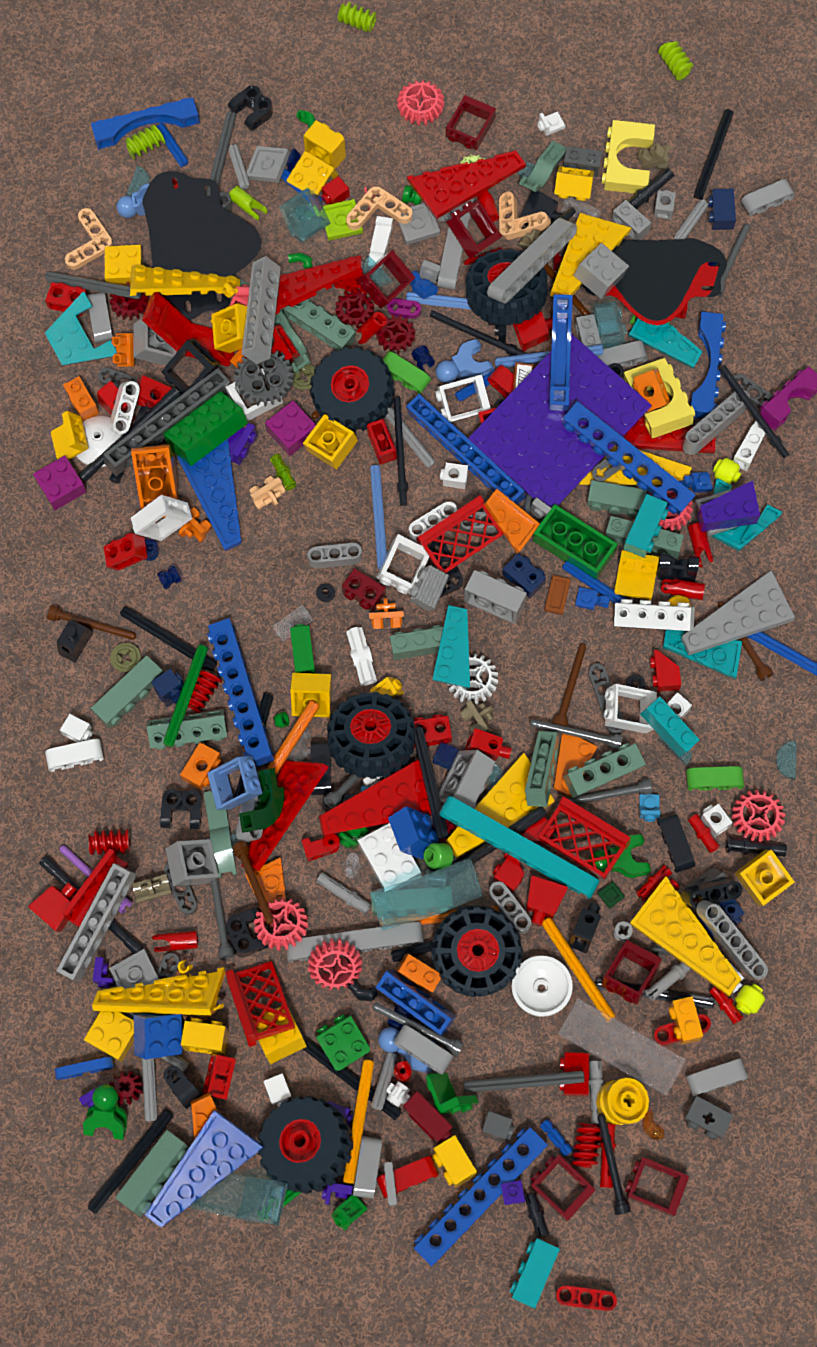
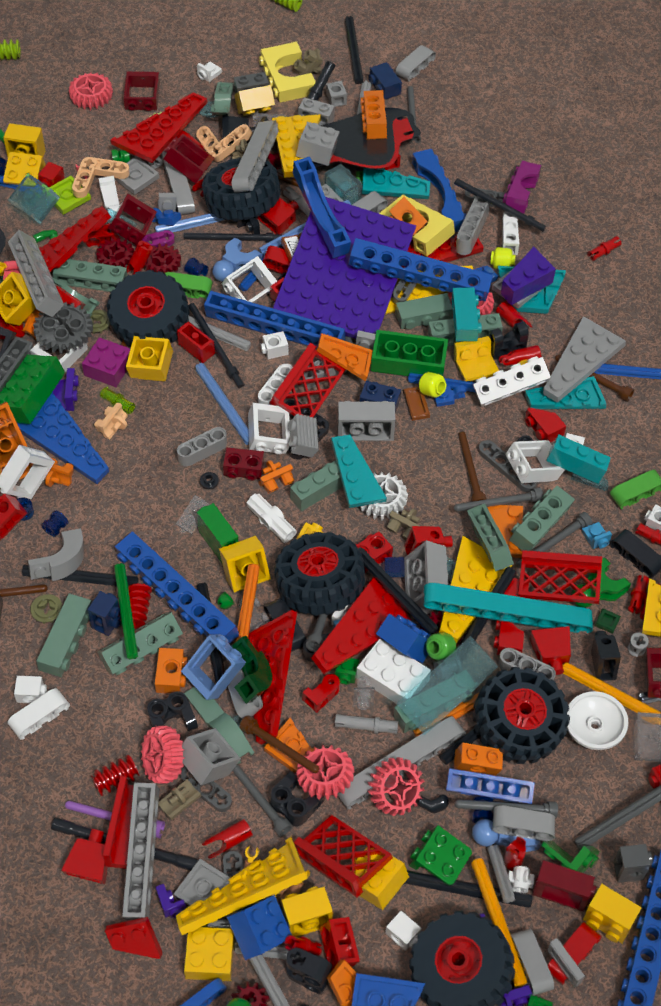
camera: 30 degrees left, 15 degrees down
(61, 991) = (134, 937): none -> red wing
(154, 844) = (162, 754): none -> coral gear
(160, 620) = (62, 563): none -> light grey arch
(188, 1064) = (303, 943): none -> red pin
(578, 584) = (432, 384): none -> neon yellow head
(684, 251) = (374, 114): none -> orange brick

